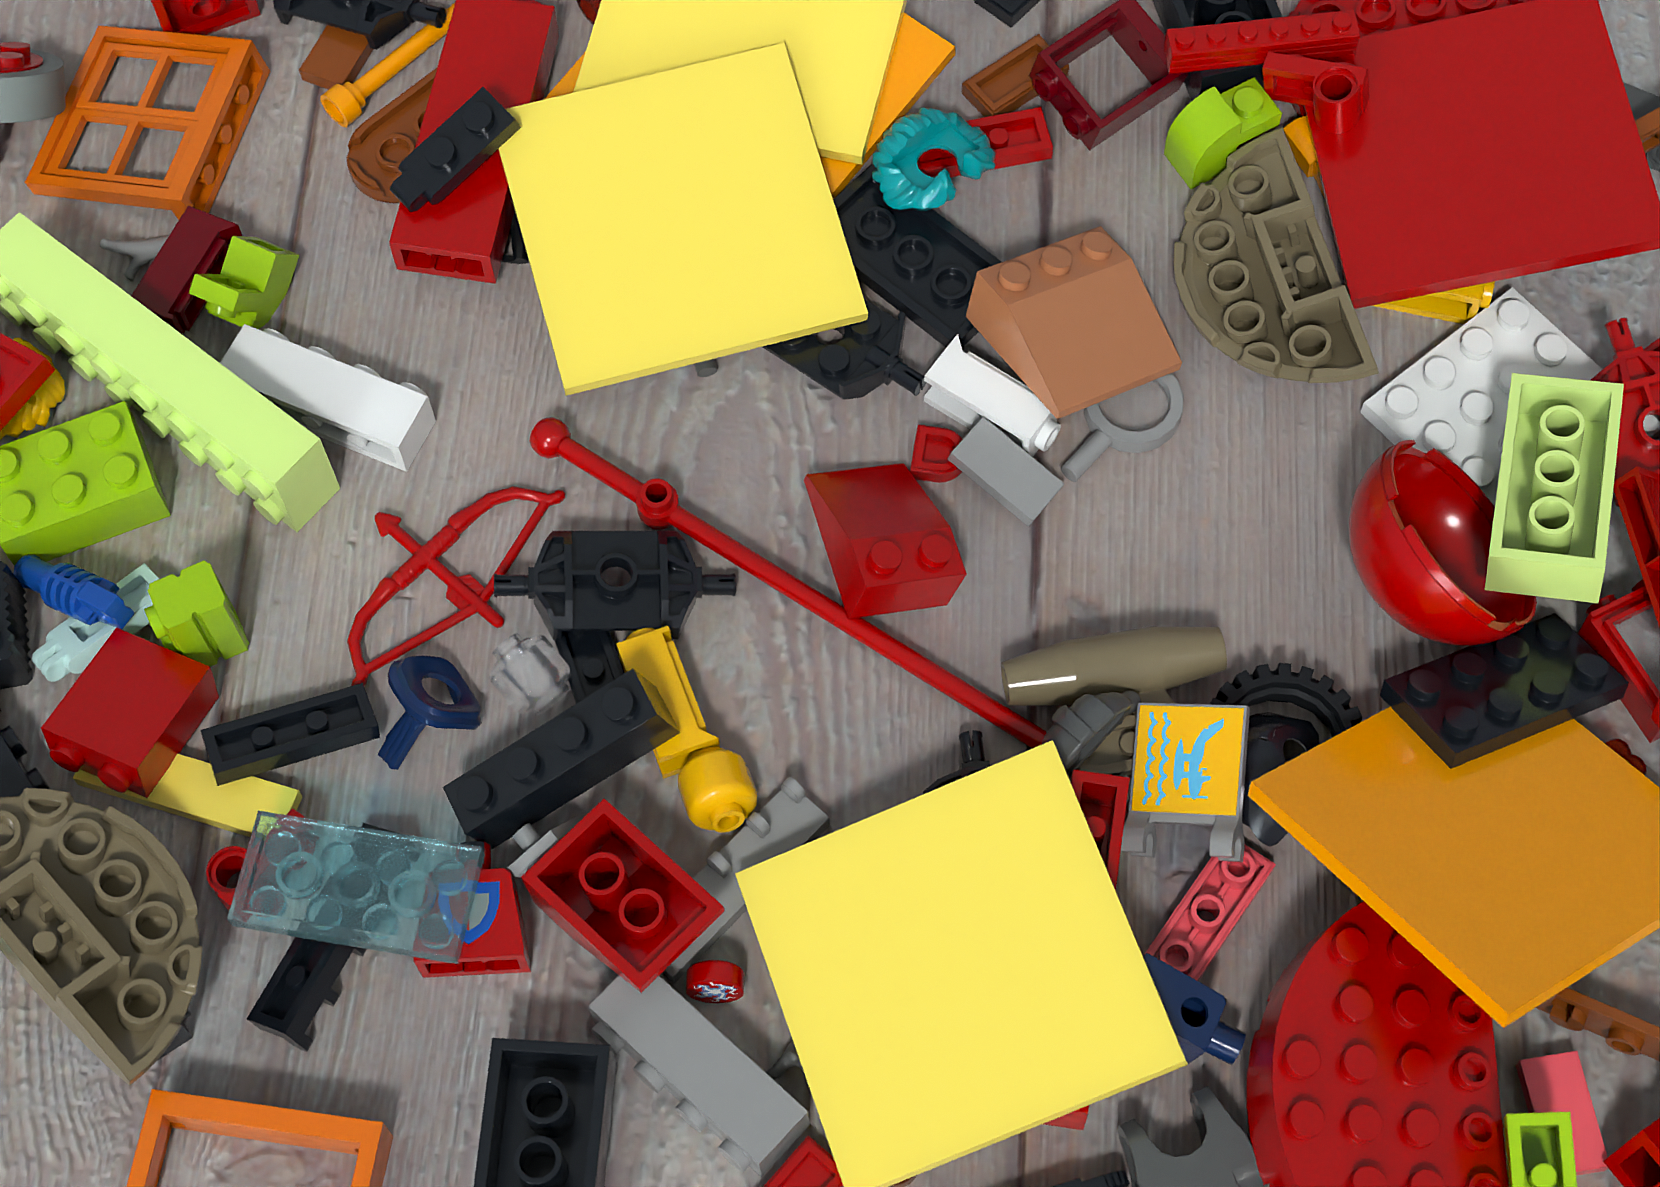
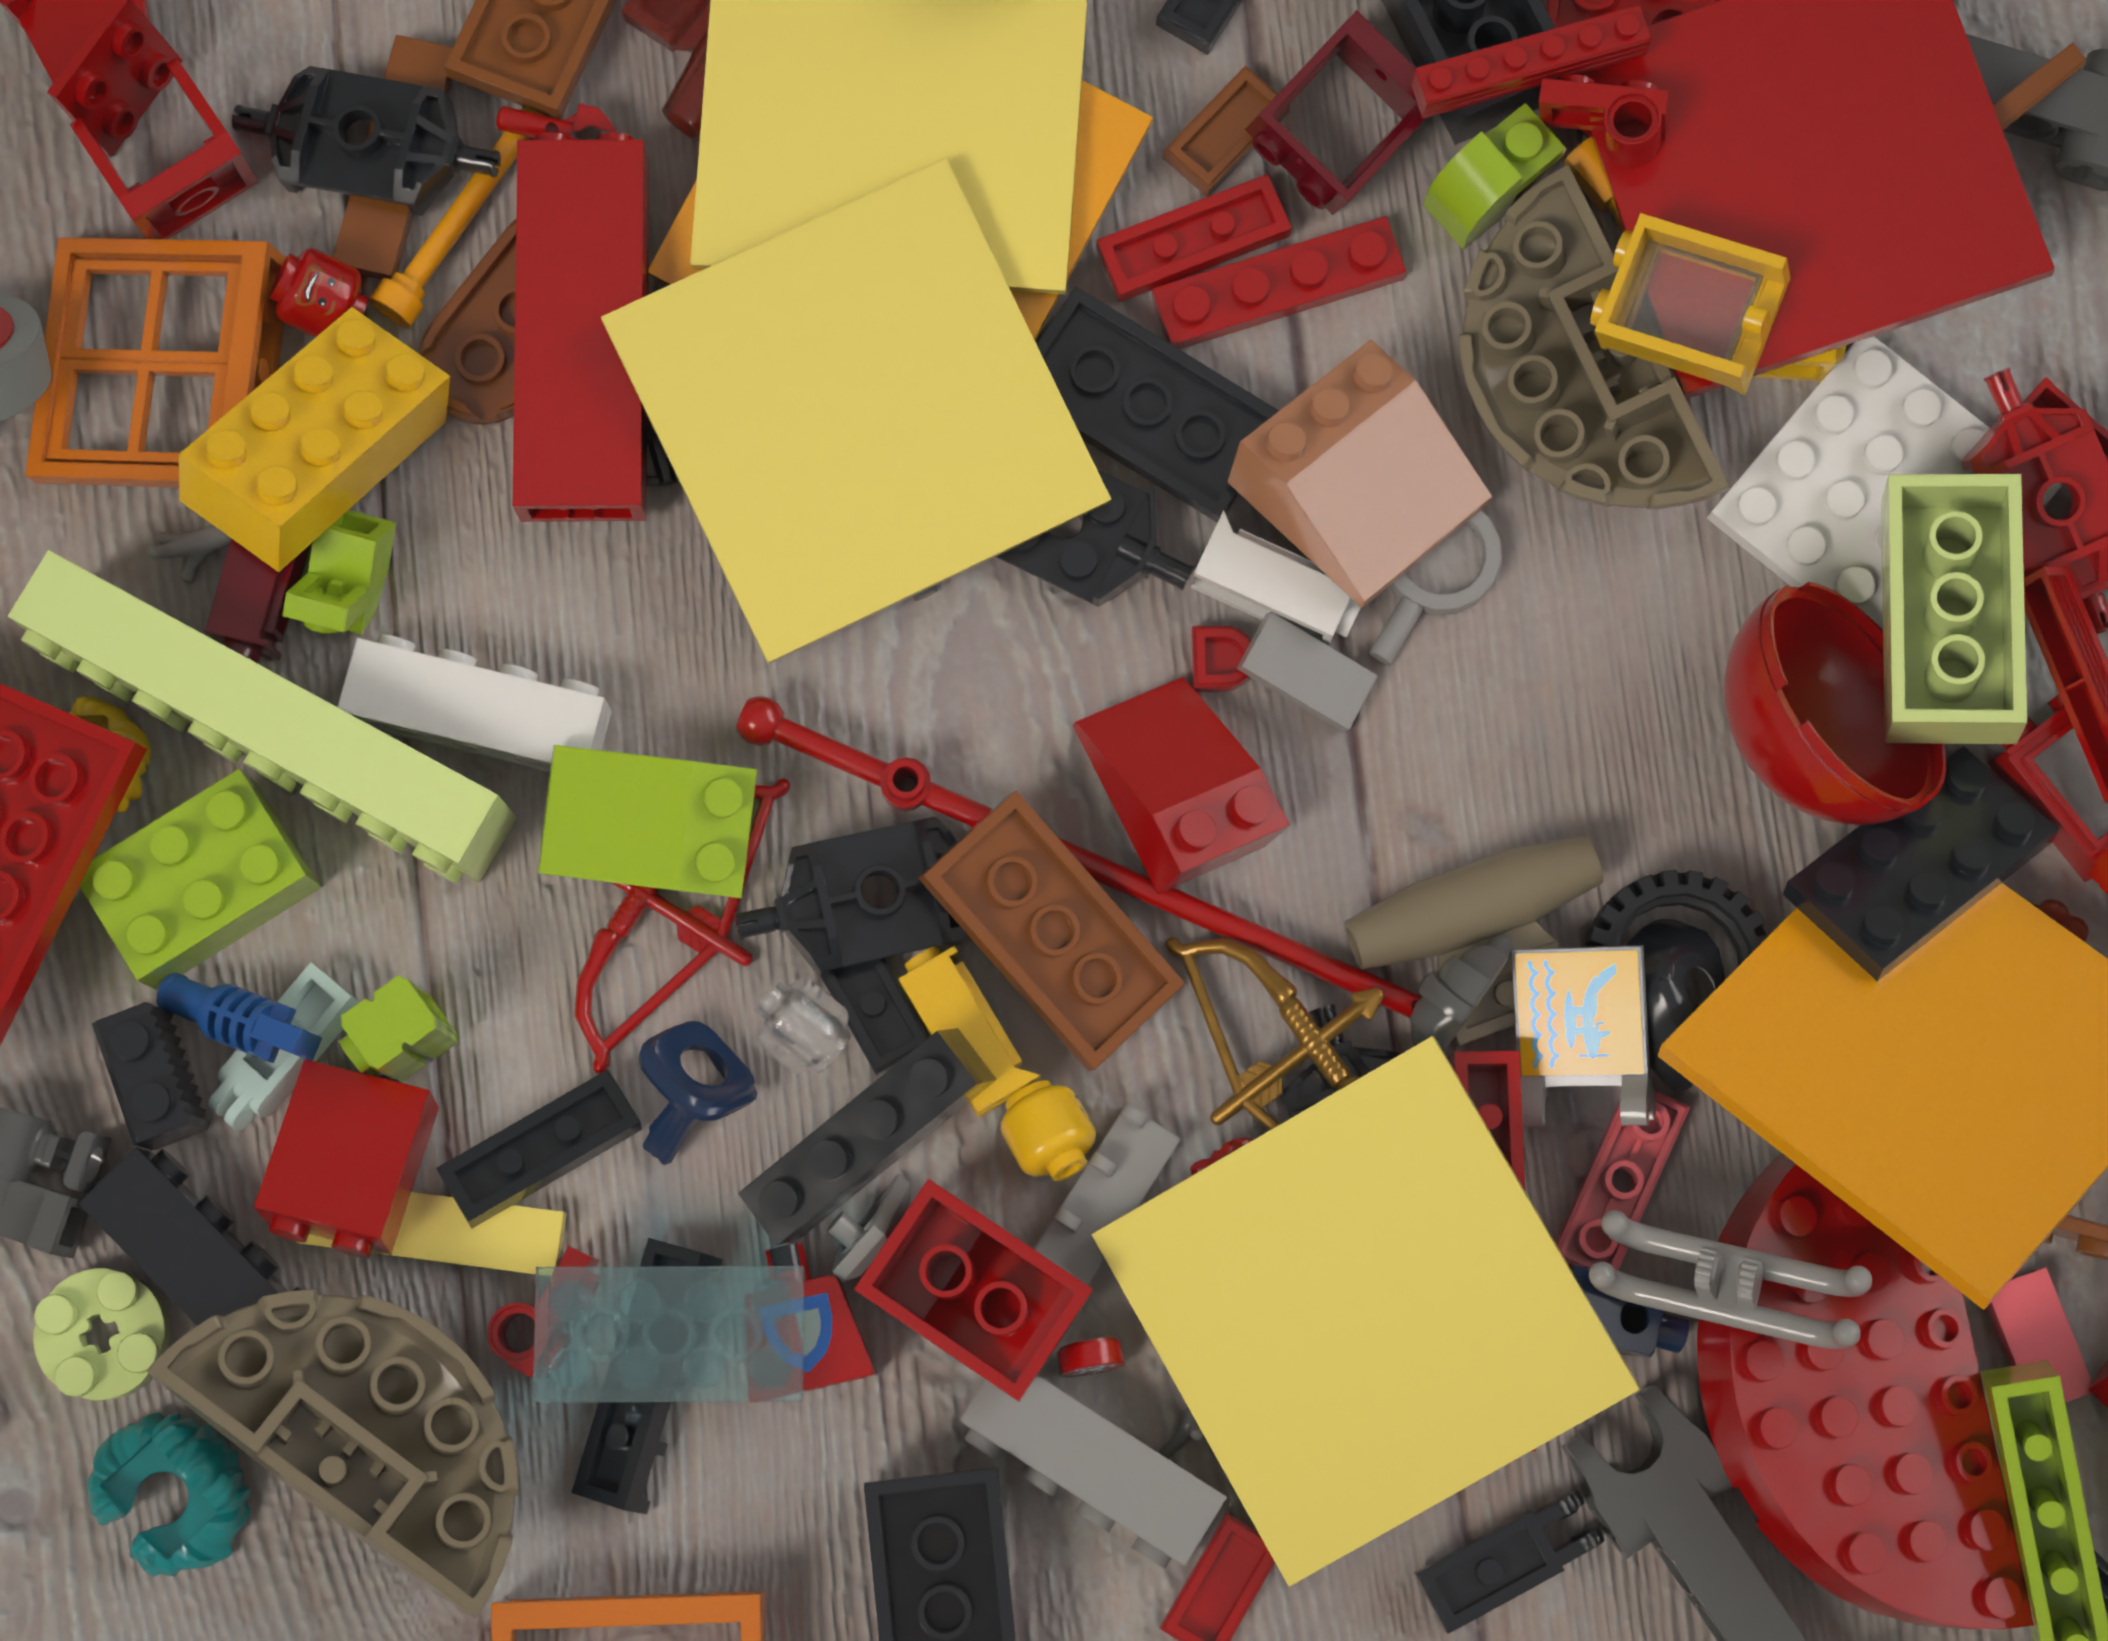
camera: 15 degrees left, 15 degrees up
(247, 173) = (313, 438): none -> yellow brick
(281, 85) = (315, 291): none -> red head
(439, 491) = (647, 821): none -> lime slope
(453, 151) = (568, 376): black hinge -> none
(752, 629) = (1052, 930): none -> dark orange plate
(908, 139) = (1120, 248): teal piece -> none
(910, 780) = (1264, 1081): none -> pearl gold piece
(1043, 190) = (1279, 283): none -> red plate
(1280, 984) = (1730, 1284): none -> light grey piece
(1366, 225) = (1691, 301): none -> window

